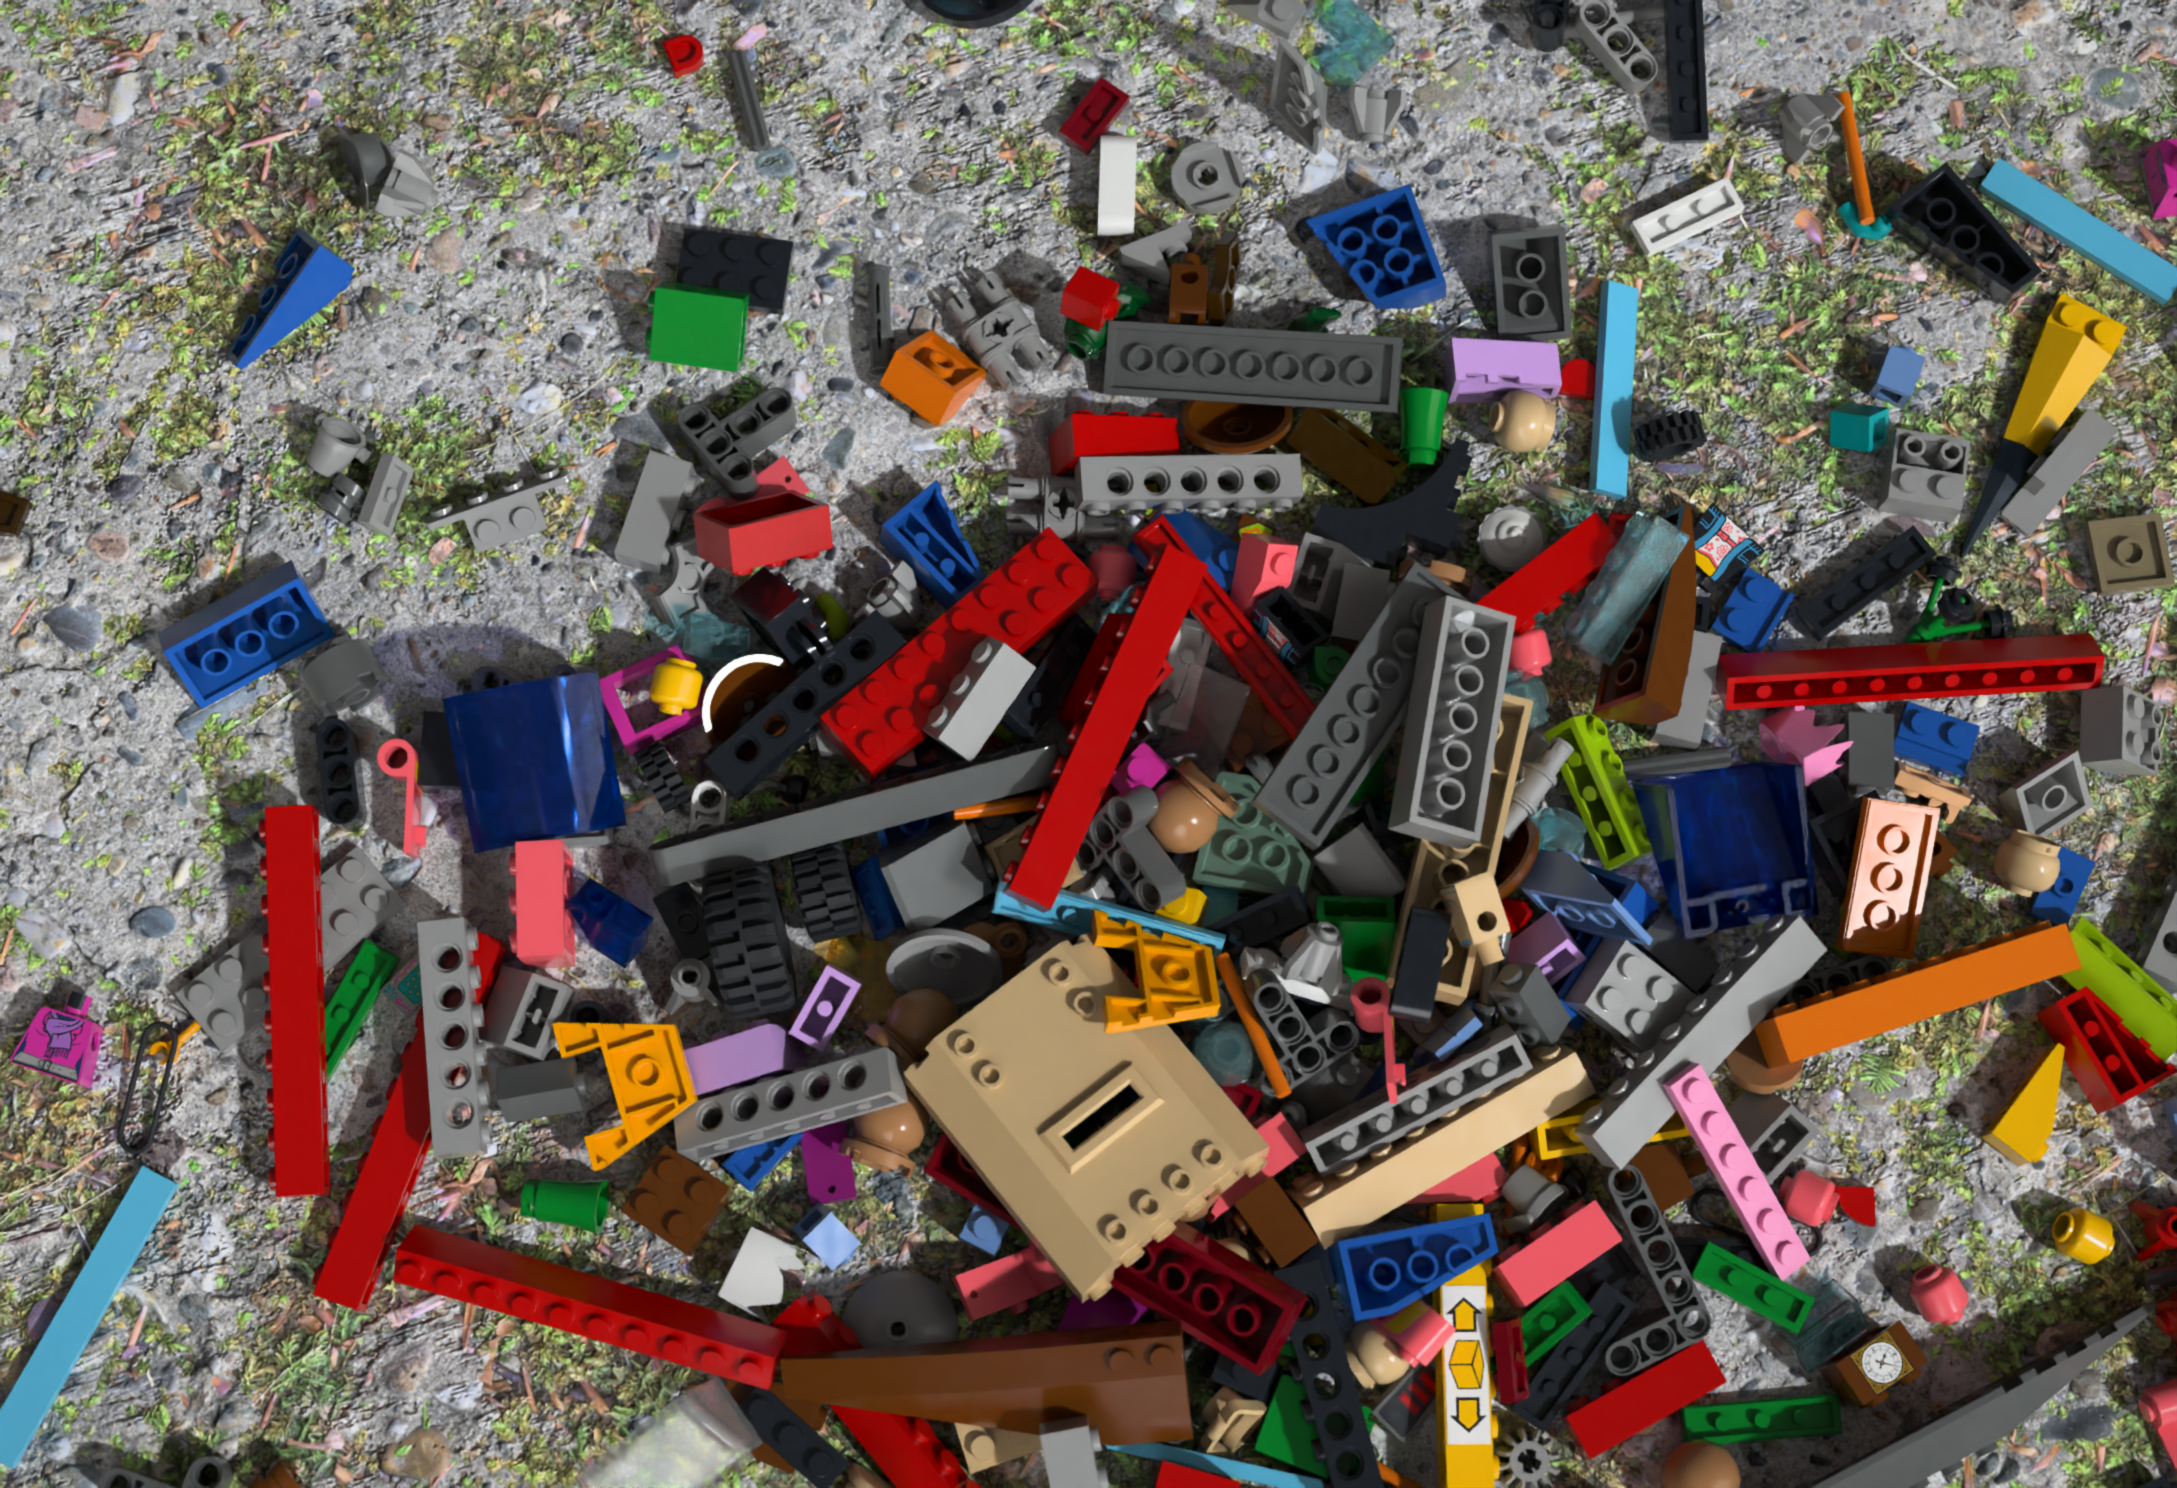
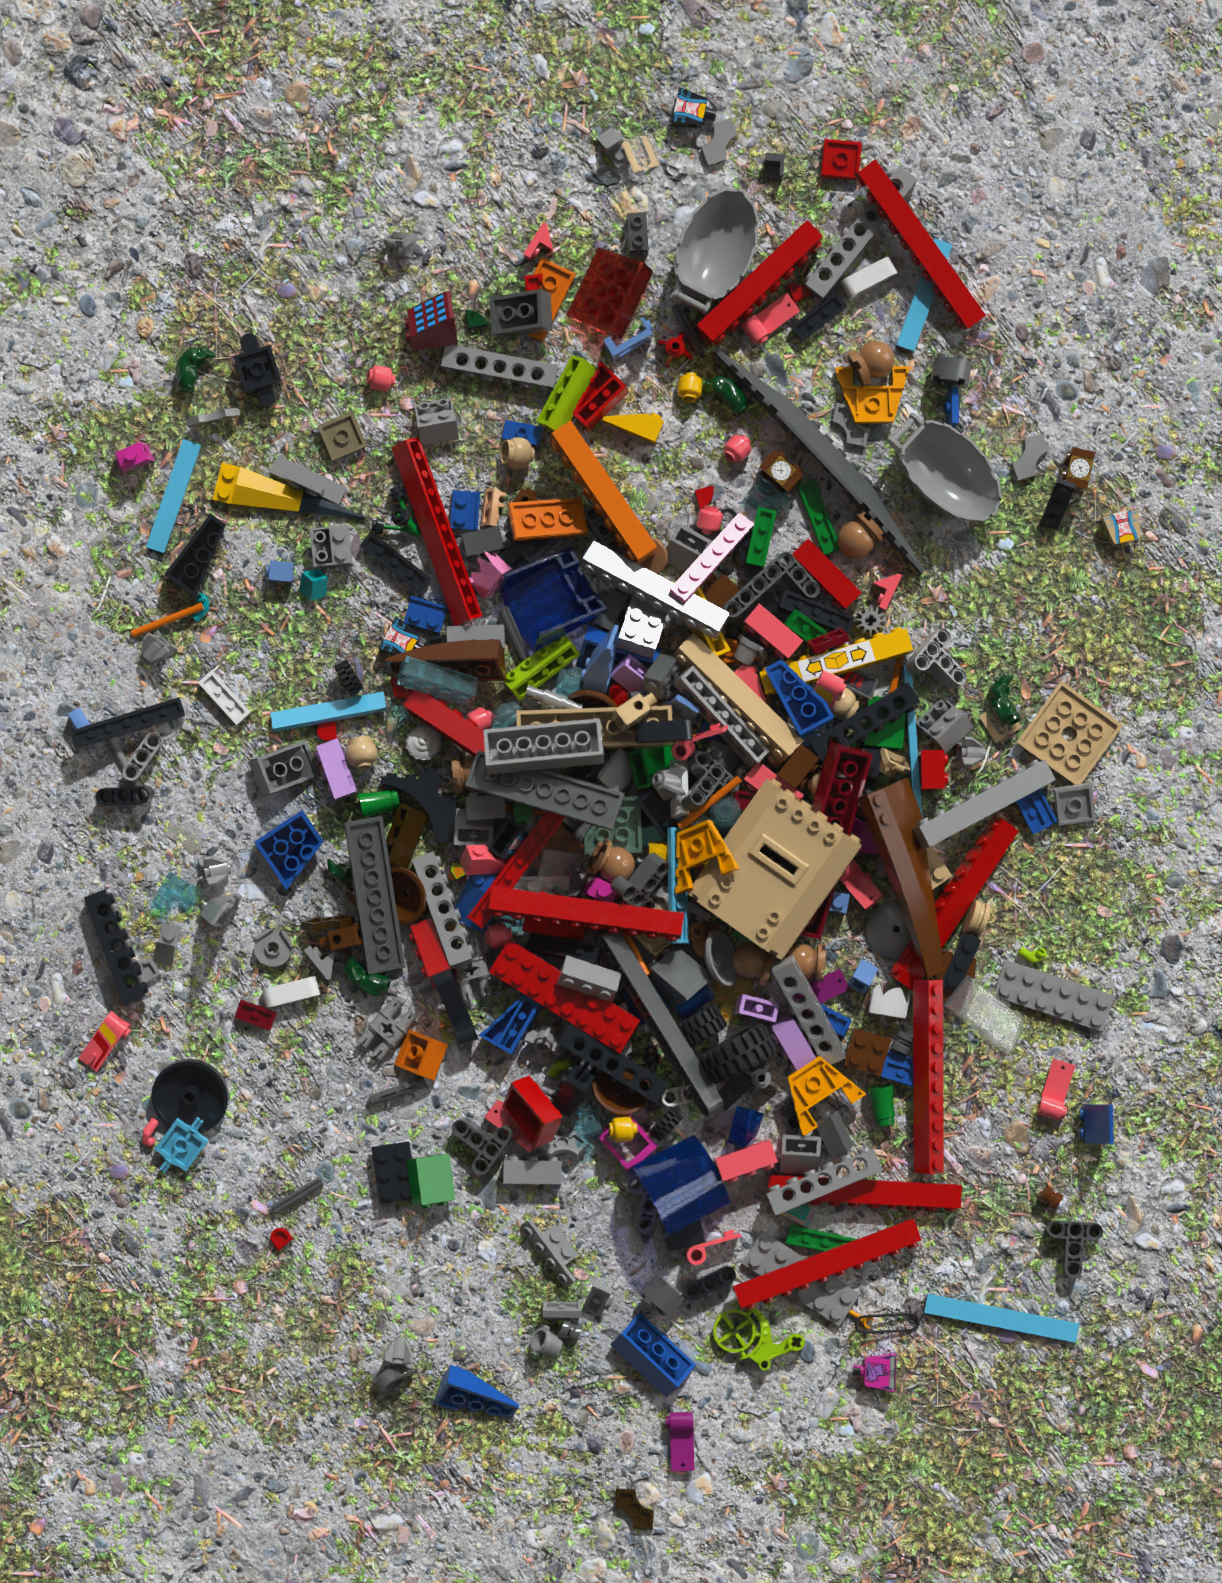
camera: 110 degrees left, 10 degrees up
(71, 642) = (681, 1440): none -> magenta door
(181, 842) = (765, 1348): none -> lime piece
(387, 565) = (597, 1298): none -> light grey slope
(627, 1253) = (898, 1068): none -> blue plate
(673, 1277) = (904, 1038): none -> dark grey wheel
(1000, 453) = (455, 1007): none -> black beam
(1090, 299) = (363, 985): red brick -> none
(2048, 796) = (479, 449): light grey slope -> none
(2056, 1312) = (728, 390): none -> dark green animal

